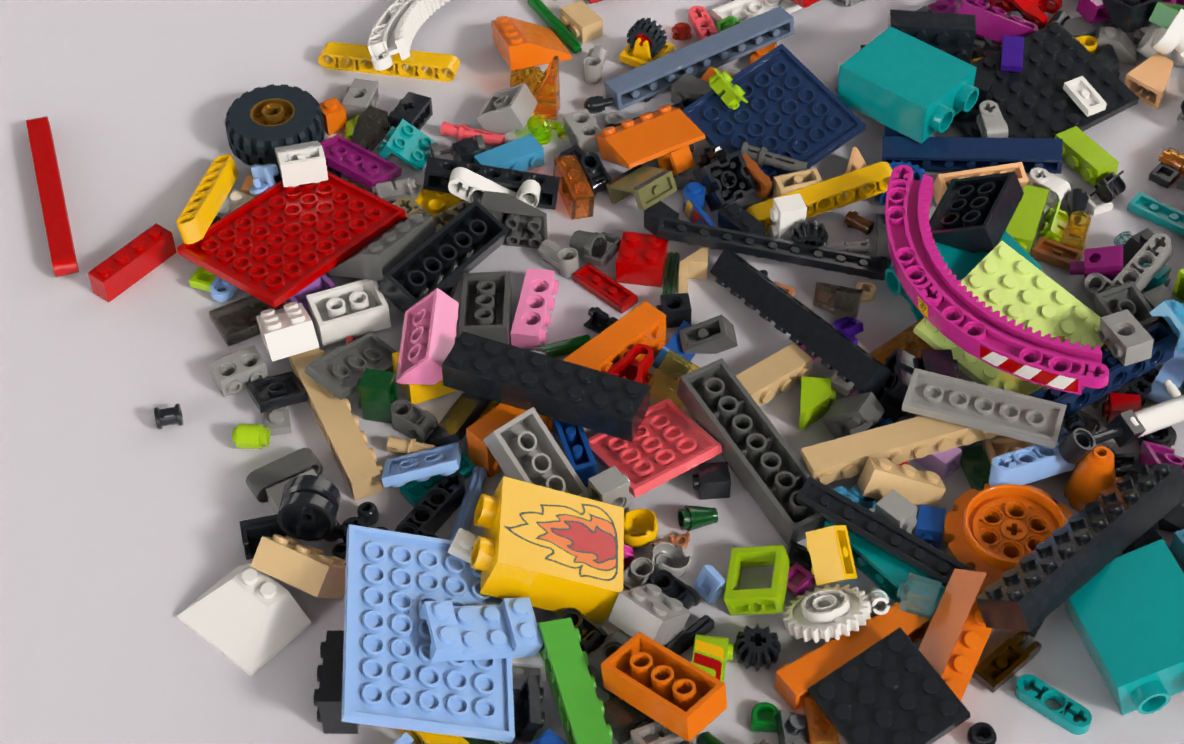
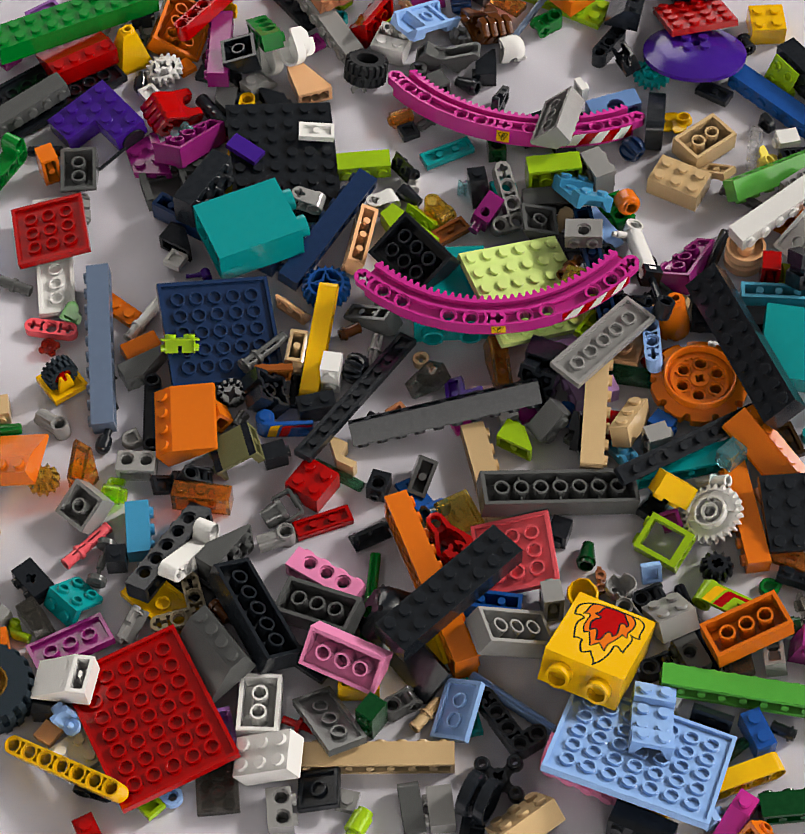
camera: 65 degrees left, 10 degrees up
(463, 545) = (574, 702): white plate -> none

